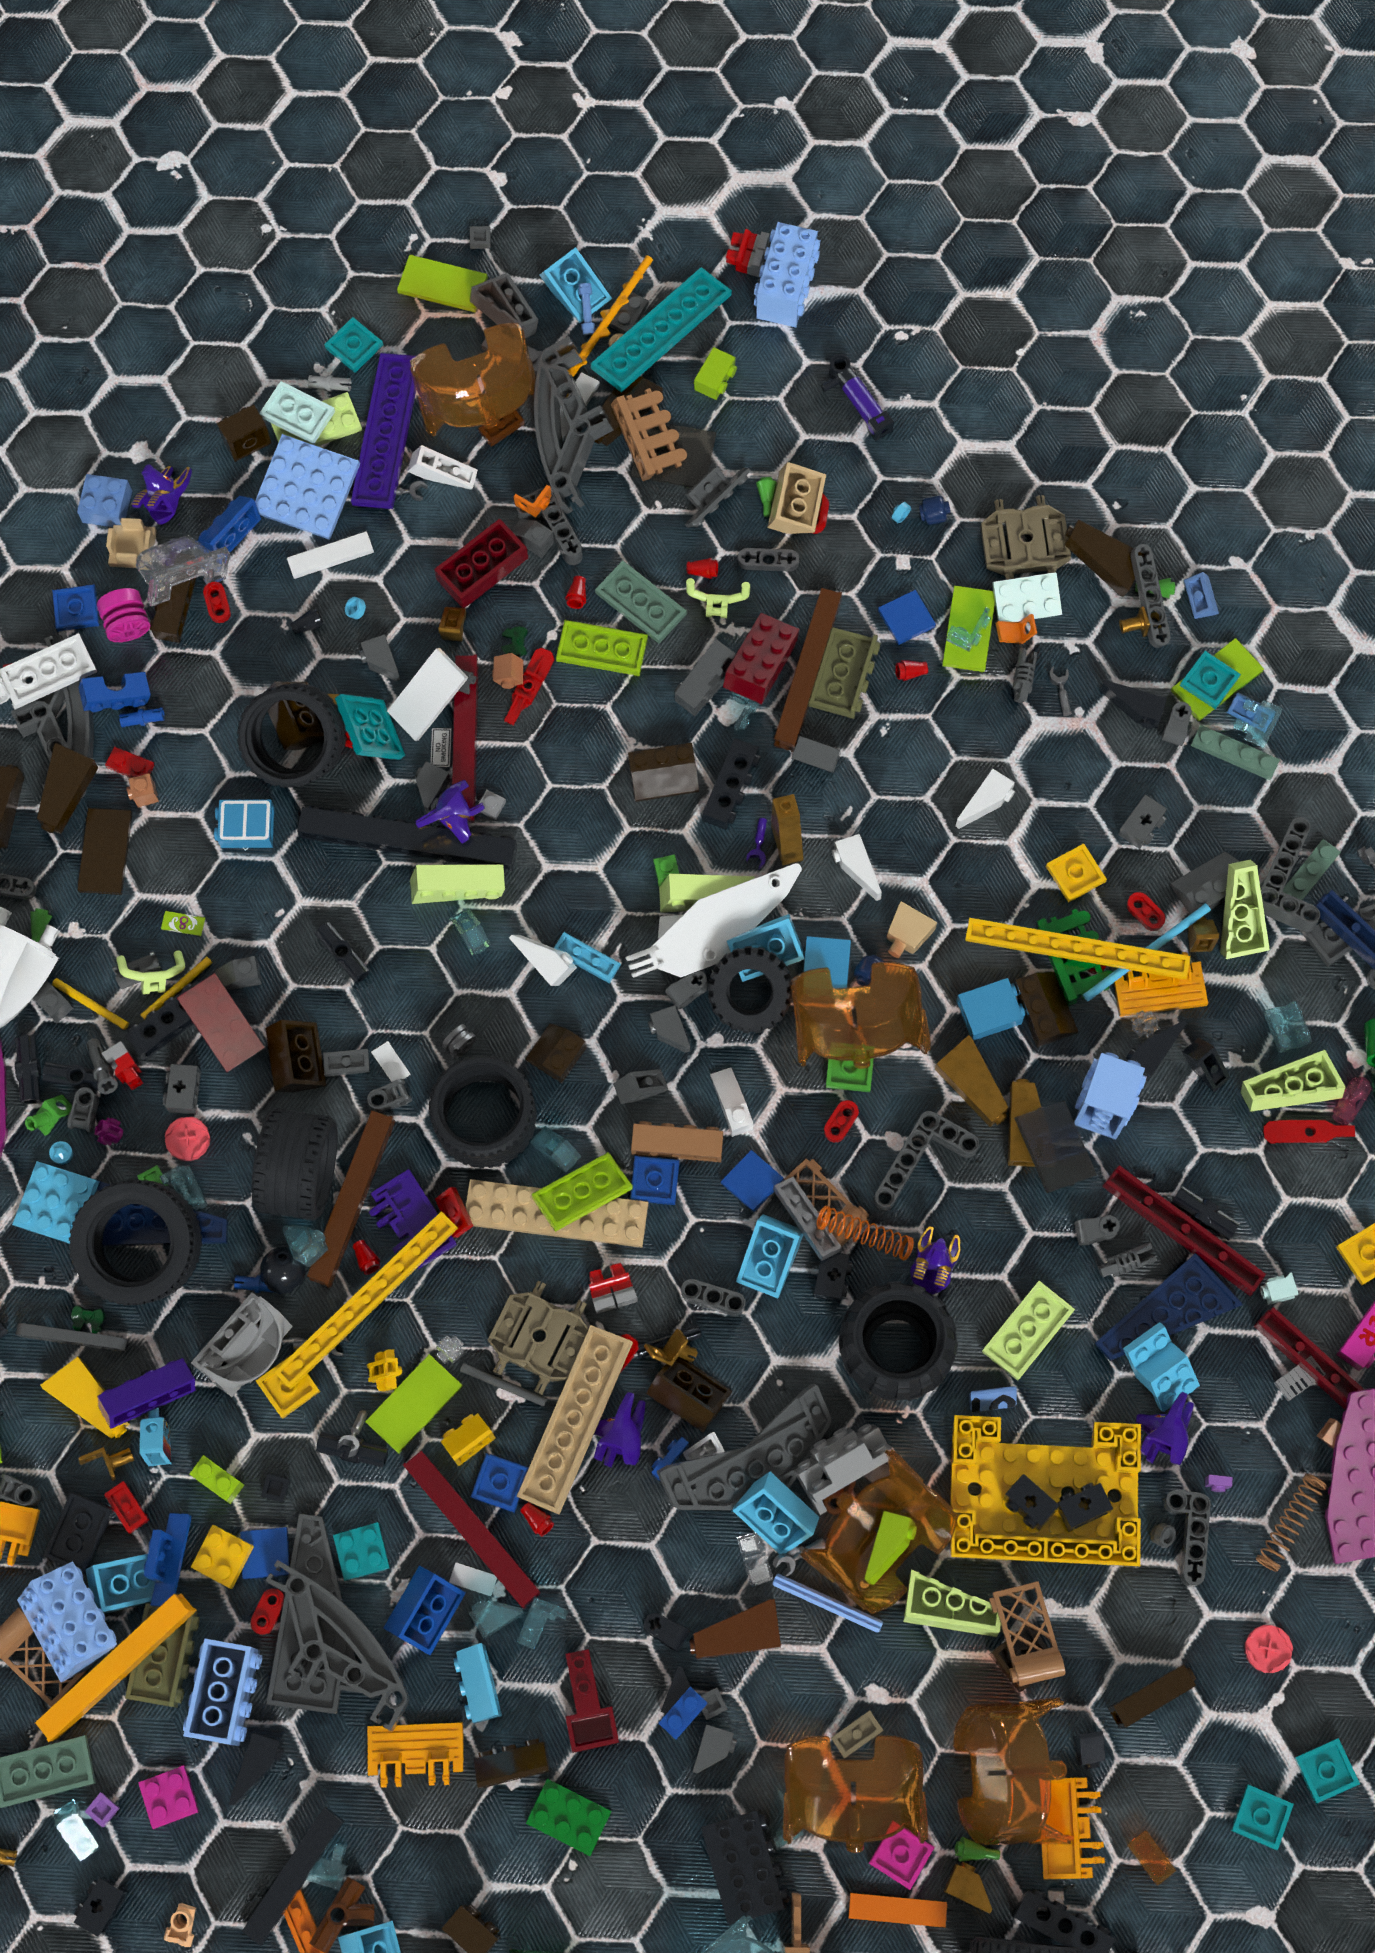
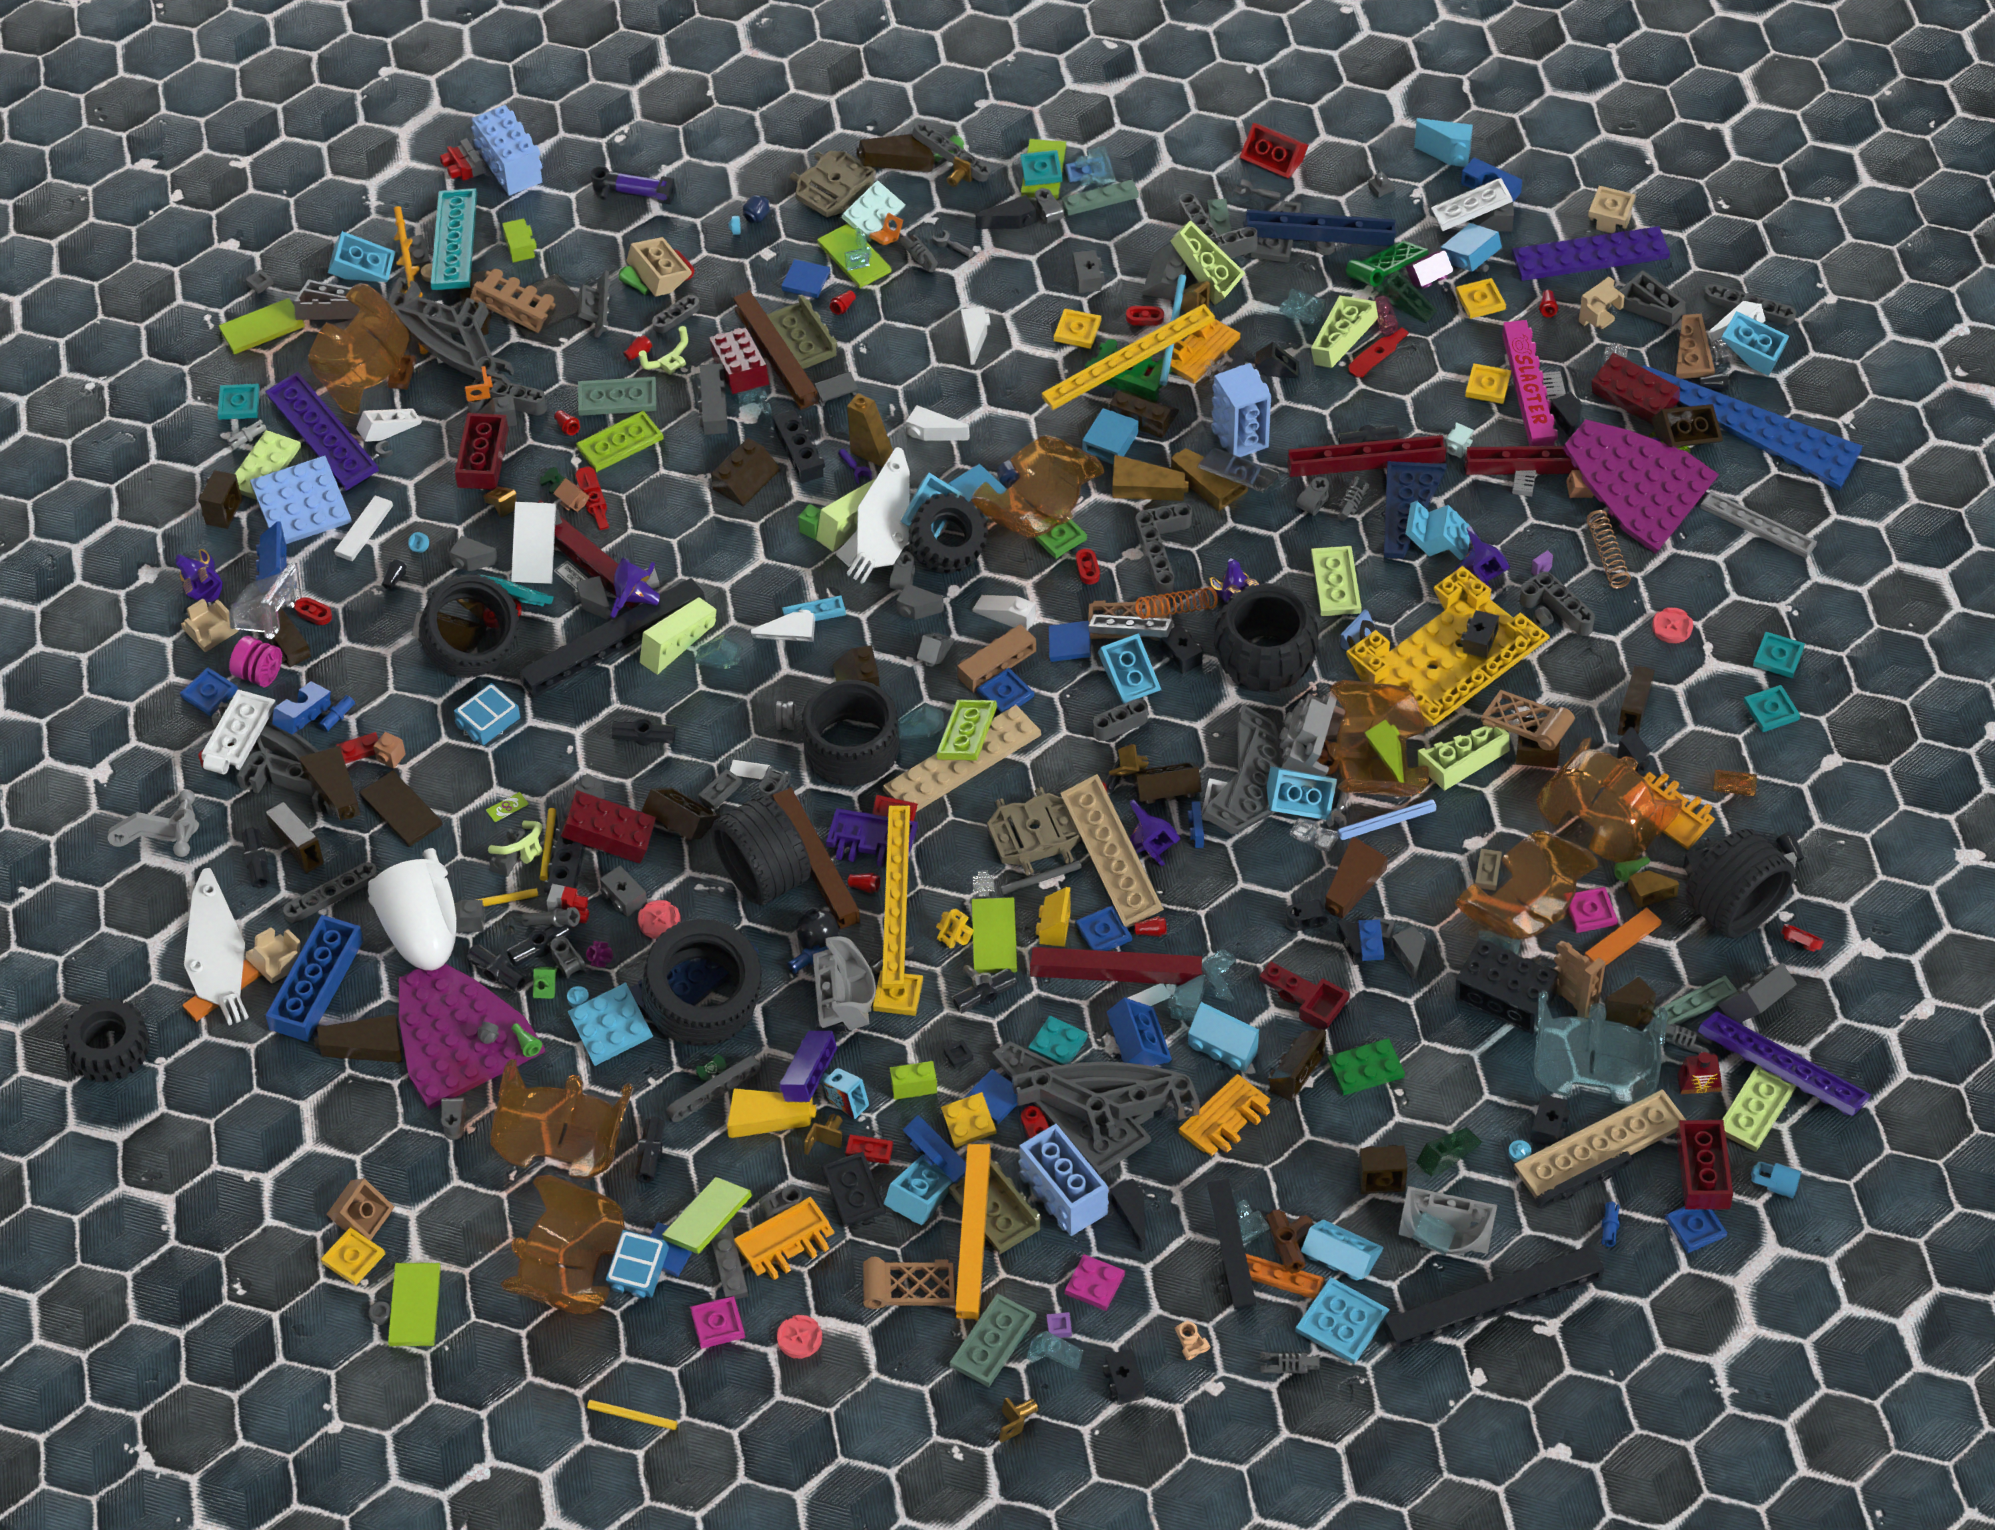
camera: 45 degrees left, 20 degrees down
(67, 1621) = (910, 1229): light blue brick -> none
(104, 500) = (159, 613): medium blue brick -> none
(297, 412) = (247, 459): light aqua plate -> none
(305, 1243) = (816, 896): clear light blue slope -> none
(585, 291) = (375, 254): medium blue bar -> none
(621, 1286) = (1051, 769): hips -> none
(909, 930) = (1007, 434): tan torso -> none
(1023, 1492) = (1446, 657): black brick -> none
(1201, 596) = (981, 134): medium blue slope -> none

